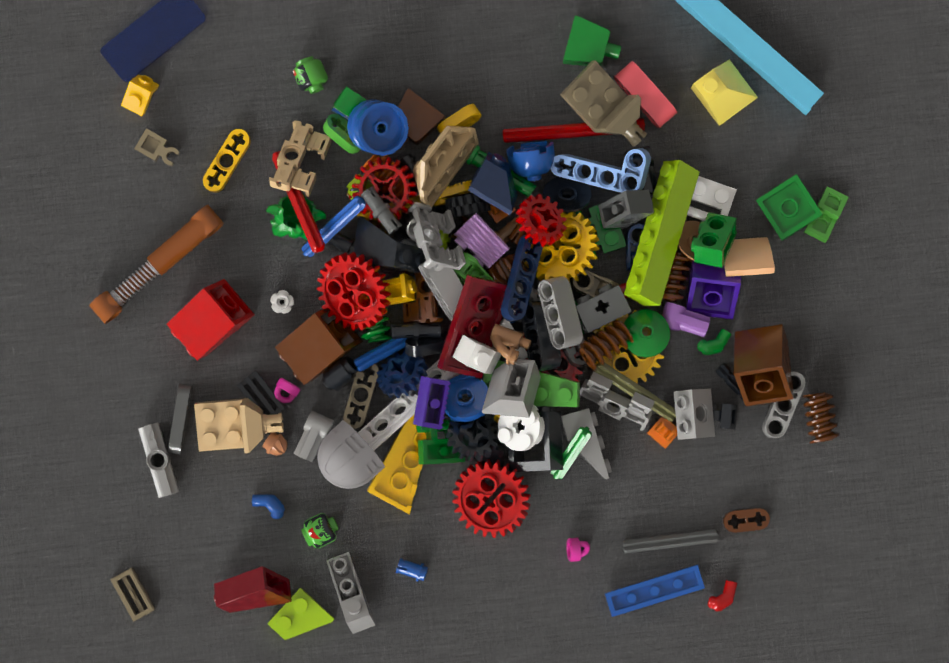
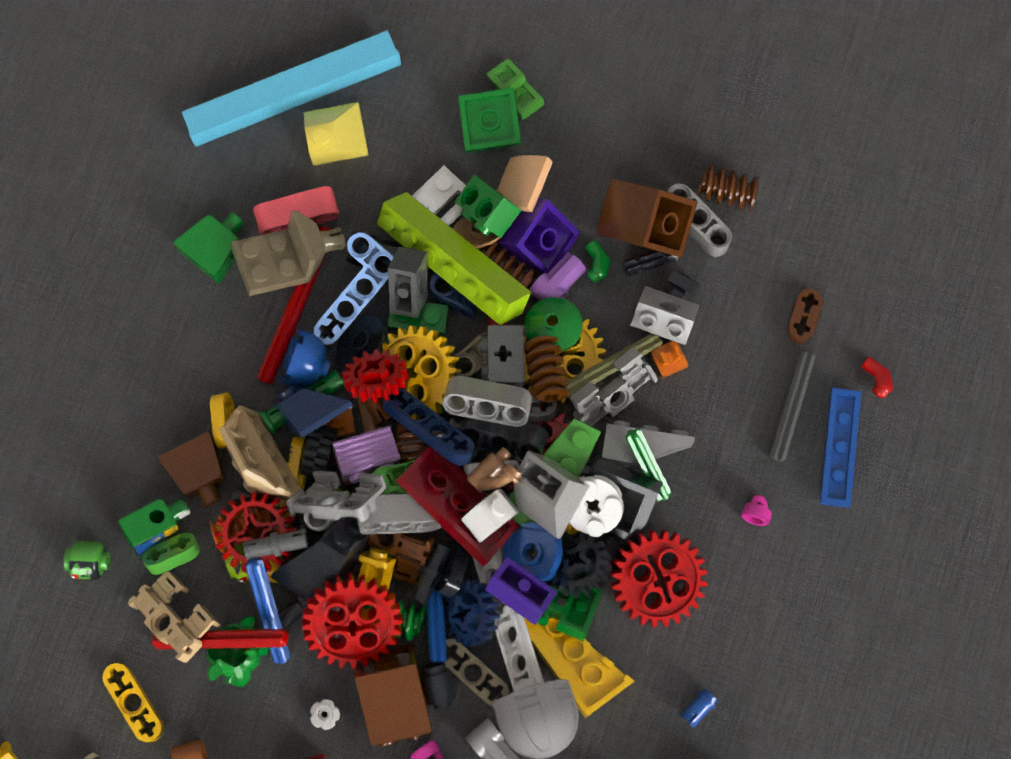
camera: 65 degrees left, 10 degrees down
(391, 126) = (181, 506): blue wheel -> none

